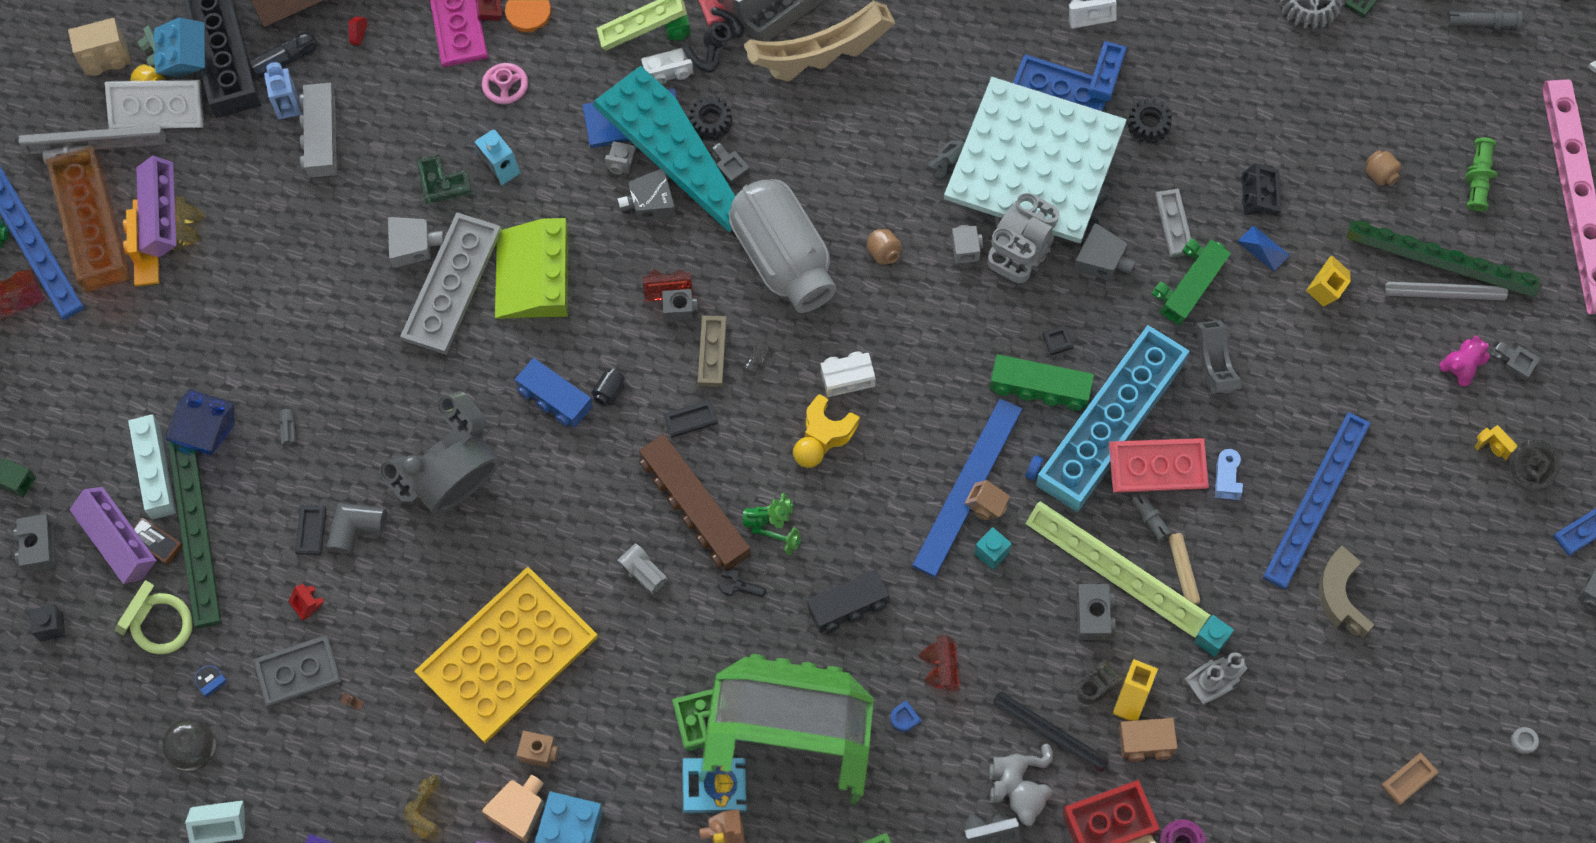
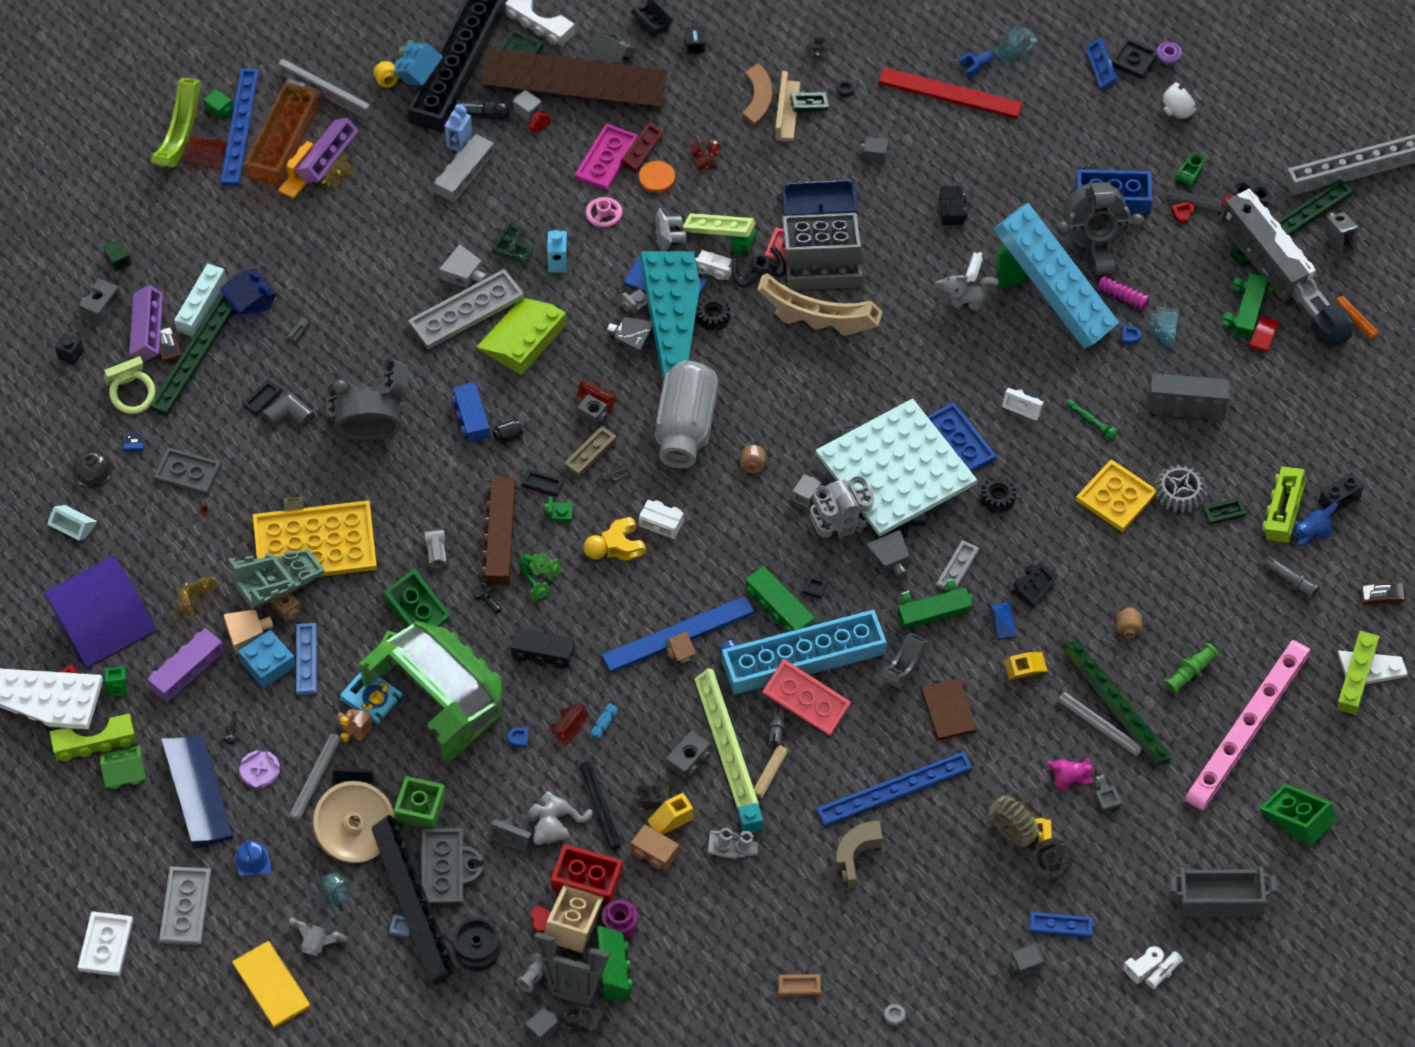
camera: 35 degrees right, 10 degrees down
(99, 47) = (373, 35): tan brick -> none
(154, 104) = (378, 90): white tile -> none
(303, 602) = (223, 433): red tile -> none
(329, 20) = (526, 105): none -> light grey brick
(448, 627) = (293, 503): none -> olive tile
(503, 728) = (273, 576): none -> sand green wedge
(591, 68) = (663, 233): none -> light grey connector
(608, 793) = (306, 659): none -> medium blue tile
(673, 647) = (414, 601): none -> green slope
(730, 165) = (700, 349): dark grey plate -> none
(734, 438) = (558, 511): none -> green bracket
(975, 636) = (603, 721): none -> dark azure axle
(992, 548) = (658, 677): teal brick -> none
(1107, 71) = (998, 446): blue tile -> none
(1226, 475) = (849, 732): light blue leg -> none
(1258, 46) = (1116, 495): none -> yellow plate
(1295, 377) = (949, 709): none -> reddish brown tile
(1466, 451) = (1014, 821): none -> dark tan gear

